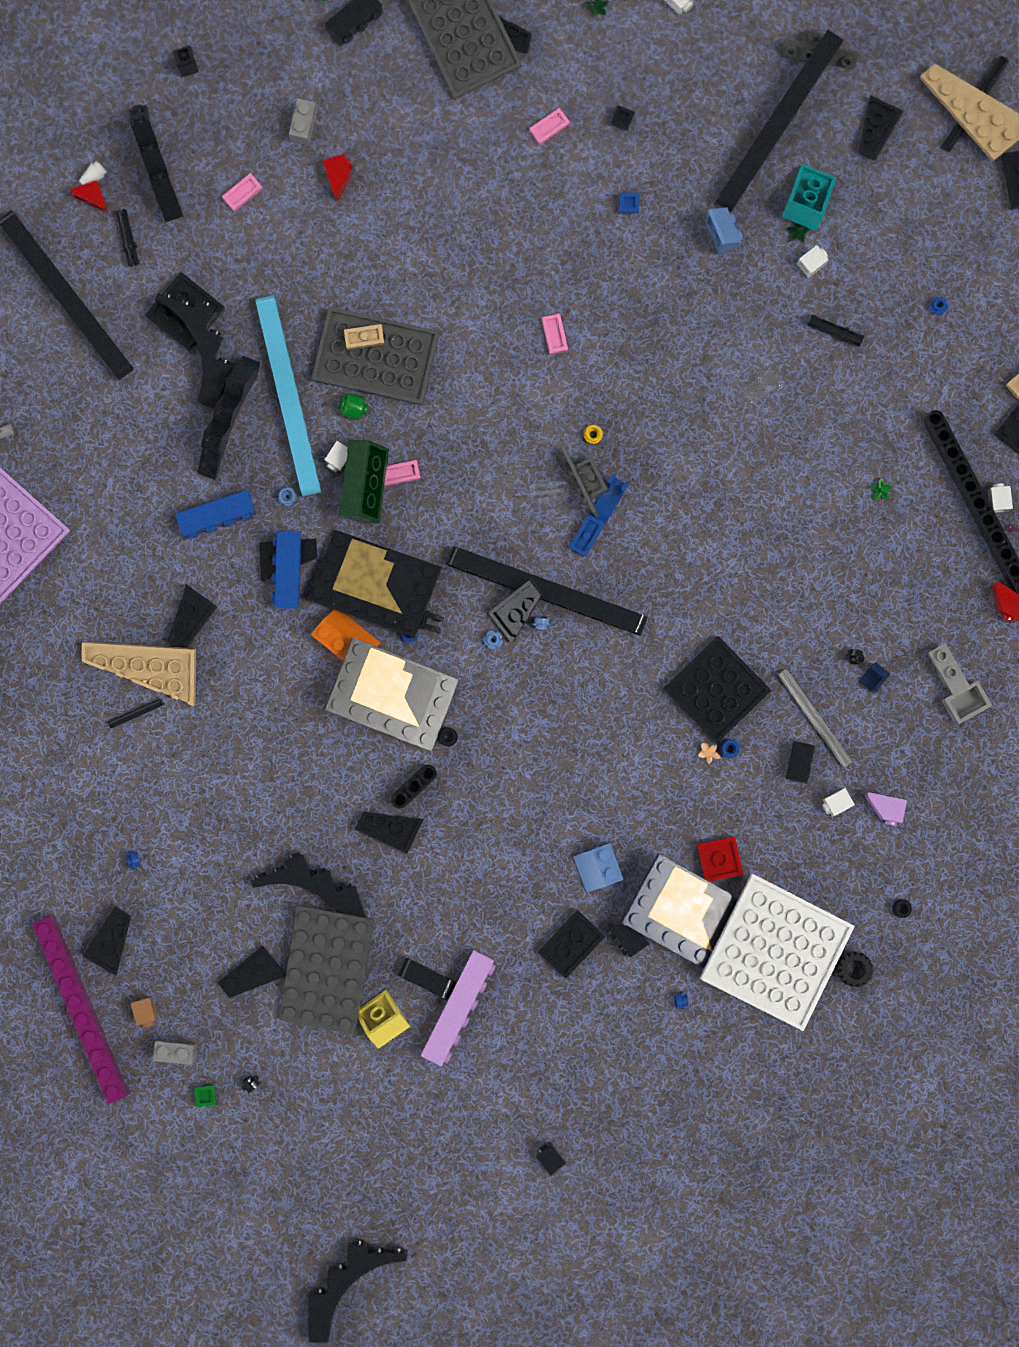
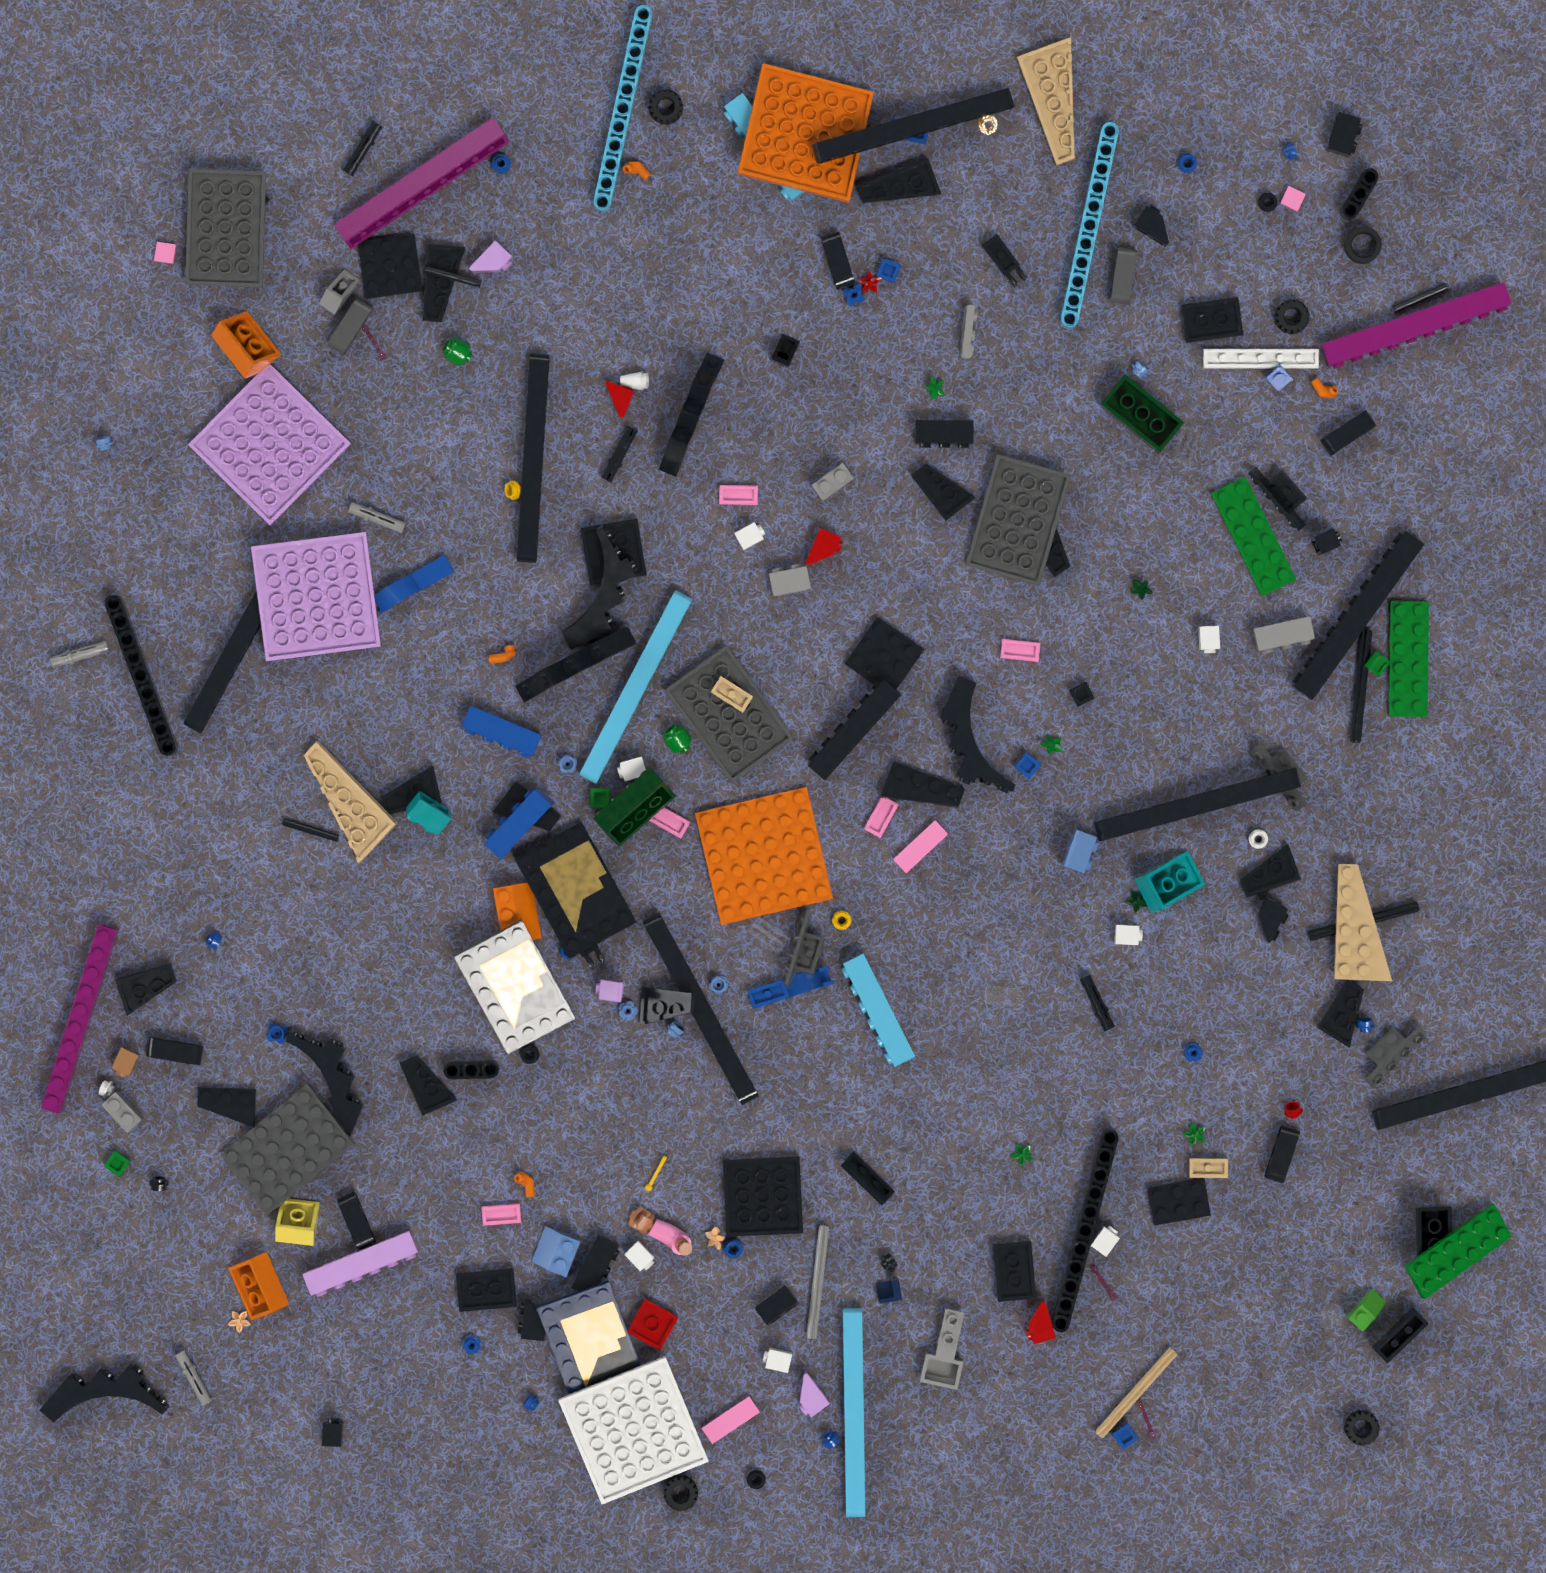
camera: 40 degrees right, 5 degrees up
(54, 463) = (413, 583): none -> blue piece
(70, 330) = (512, 490): none -> yellow plate
(147, 1045) = (106, 1089): none -> white plate
(169, 459) = (503, 657): none -> orange arm
(175, 970) = (174, 1051): none -> black beam
(213, 621) = (428, 813): none -> teal brick
(247, 889) = (273, 1037): none -> blue plate
(276, 213) = (750, 535): none -> white brick
(332, 500) = (599, 798): none -> green plate
(334, 220) = (789, 580): none -> light grey brick
(384, 1203) = (182, 1357): none -> light grey pin
(389, 62) = (943, 493): none -> black wing
(395, 1094) = (258, 1286): none -> orange slope
(404, 1135) = (239, 1320): none -> light nougat plant
(453, 216) = (884, 654): none -> black plate
(466, 634) = (610, 990): none -> lavender slope
(478, 284) = (854, 730): none -> black brick
(493, 437) = (763, 855): none -> orange plate
(530, 835) = (526, 1181): none -> orange arm
(532, 877) = (501, 1214): none -> bright pink tile
(543, 566) = (713, 985): none -> medium blue plate
(557, 290) = (912, 785): none -> black wing
(566, 225) = (973, 765): none -> black arch
(597, 991) = (466, 1345): none -> blue plate
(603, 330) = (920, 846): none -> bright pink tile
(625, 758) = (648, 1187): none -> yellow hinge
(635, 172) = (1052, 745): none -> green plant
(637, 850) = (596, 1263): none -> black brick
(664, 782) = (664, 1232): none -> piece
(665, 815) = (640, 1256): none -> white brick
(679, 475) = (880, 1013): none -> medium azure brick
(783, 607) = (867, 1178): none -> black plate
(842, 880) = (730, 1419): none -> bright pink tile
(848, 106) = (1253, 843): none -> white plate
(906, 159) = (1270, 918): none -> black slope
(930, 792) = (854, 1412): none -> medium azure beam
(931, 828) = (830, 1439): none -> blue plate
(953, 580) = (1014, 1271): none -> black plate
(994, 364) = (1195, 1134): none -> green plant

